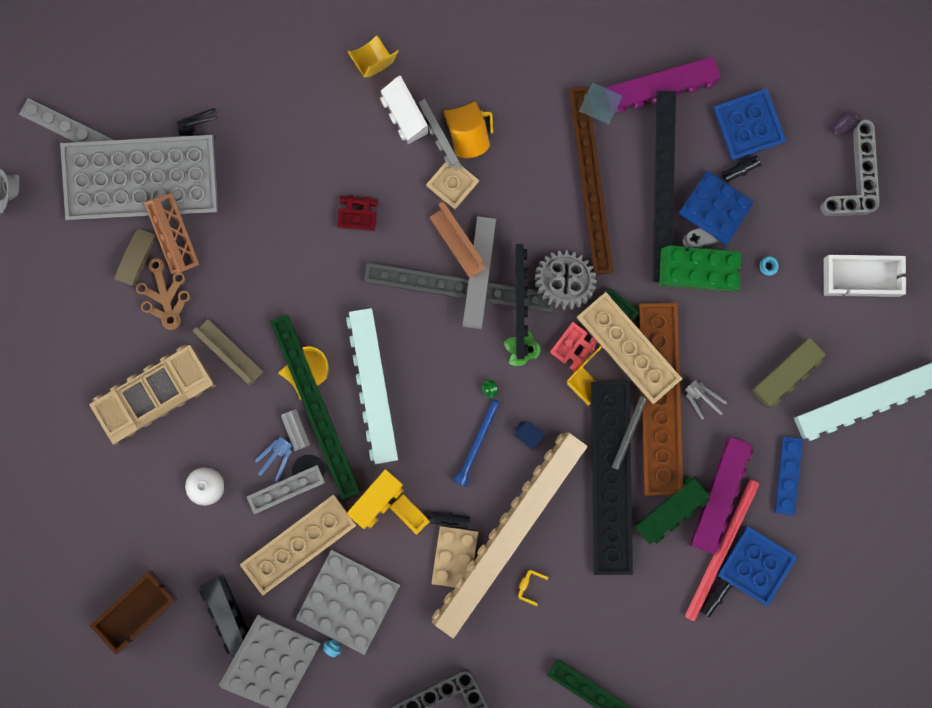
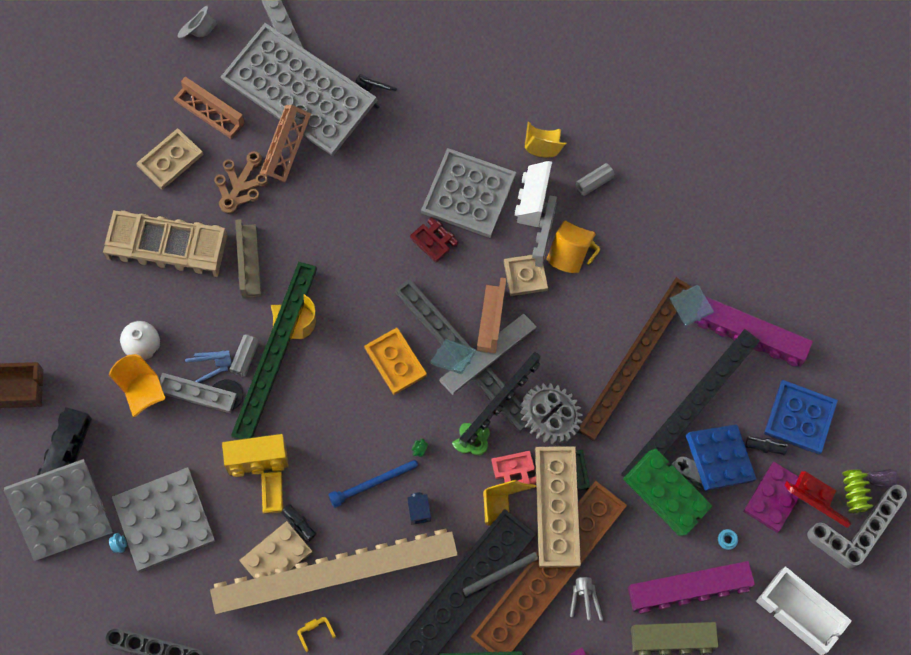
camera: 45 degrees right, 15 degrees down
(80, 246) = (215, 104): none -> nougat fence
(89, 322) = (169, 159): none -> tan plate
(135, 257) = (243, 140): dark tan slope -> none
(238, 521) = (137, 382): none -> light orange piece
(298, 545) = (165, 442): tan plate -> none
(350, 151) = (468, 193): none -> light grey plate
(373, 386) = (331, 372): light aqua brick -> none
(413, 337) = (395, 361): none -> light orange plate
(440, 56) = (595, 179): none -> light grey axle
(456, 298) = (453, 356): none -> clear light blue piece
(771, 324) = (691, 586): none -> magenta brick
(777, 203) = (771, 499): none -> magenta plate
(808, 180) = (817, 495): none -> red plate
(835, 149) = (856, 491): none -> lime piece

